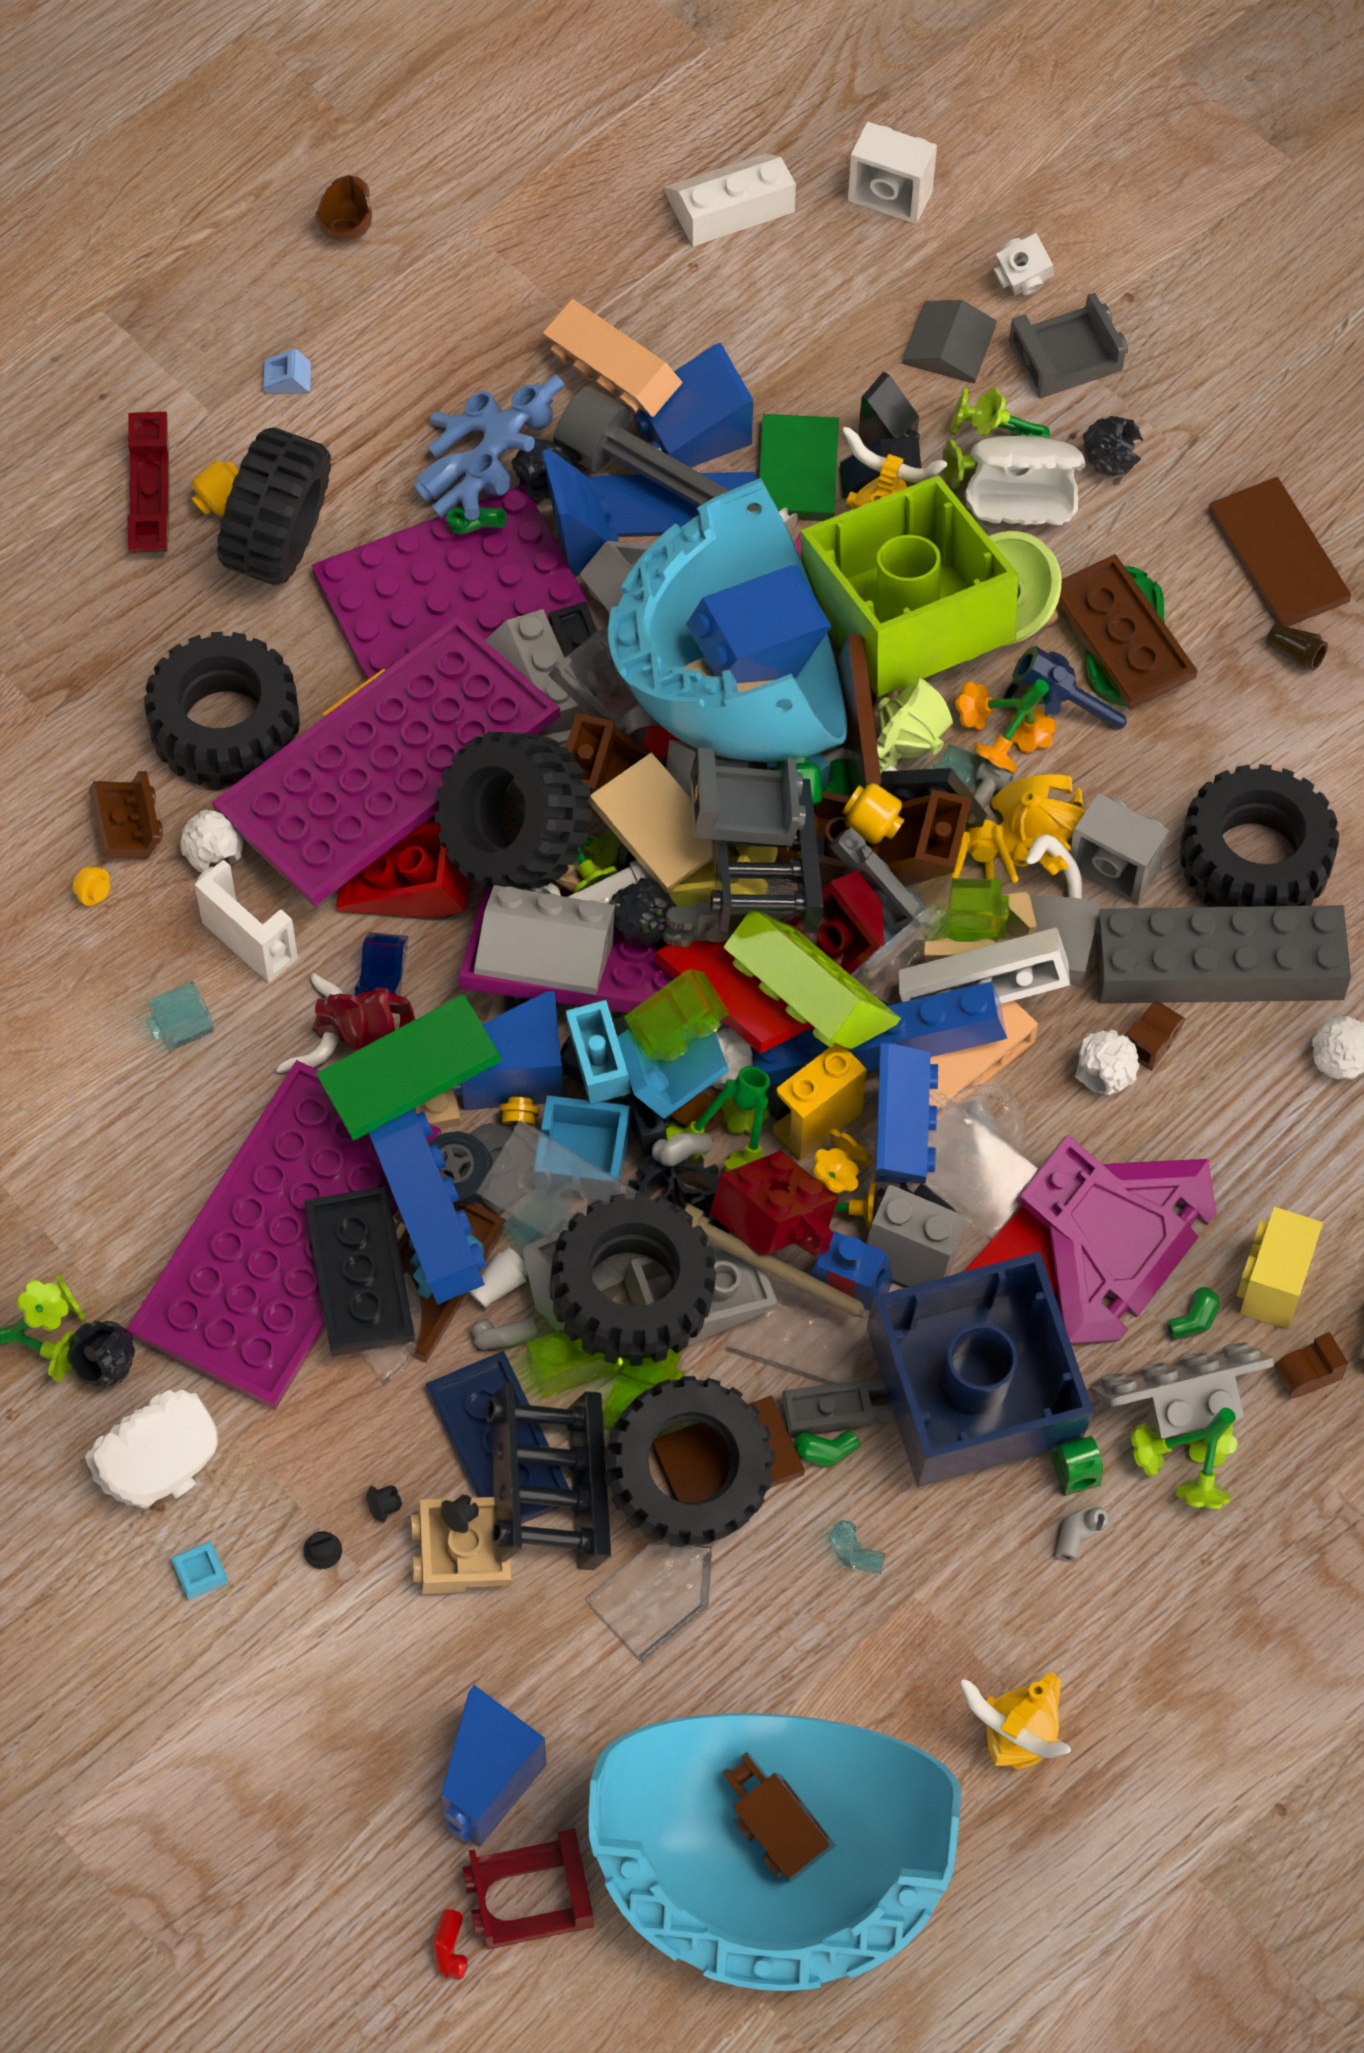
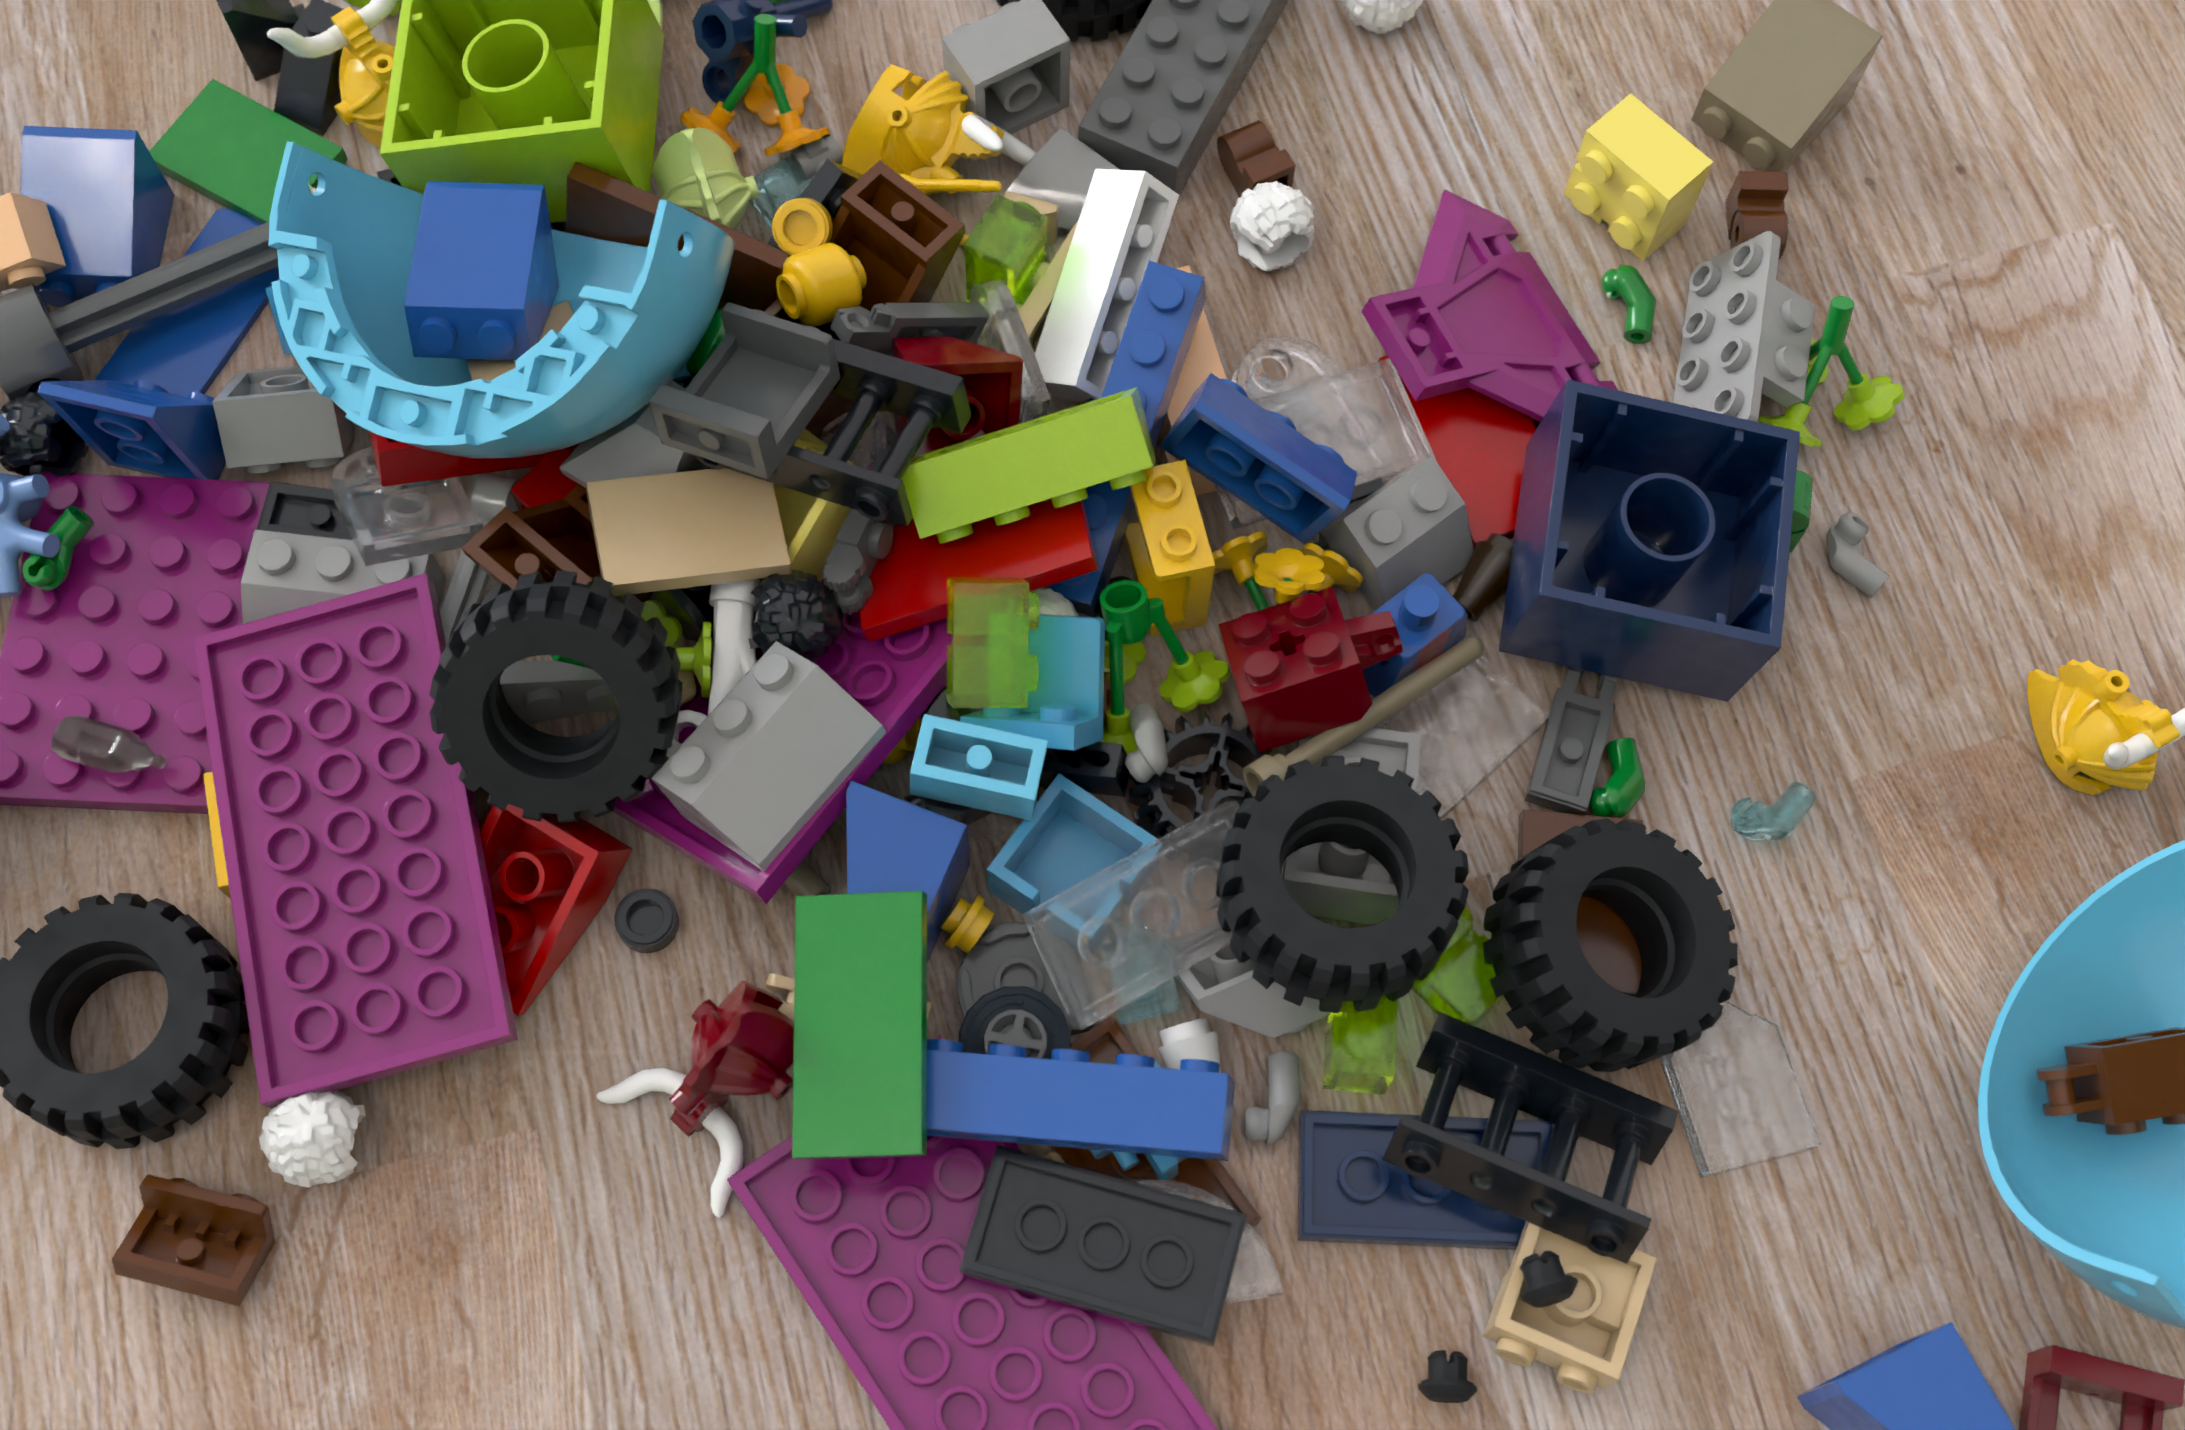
camera: 65 degrees left, 5 degrees up
(91, 885) = (274, 1343): yellow plate -> none
(179, 1017) = (562, 1314): clear light blue brick -> none
(263, 947) = (479, 1162): white panel -> none
(373, 610) = (103, 746): none -> clear smoke piece
(382, 962) = (645, 998): clear blue slope -> none
(429, 944) = (646, 920): none -> black tile
(903, 780) = (801, 225): none -> yellow tile

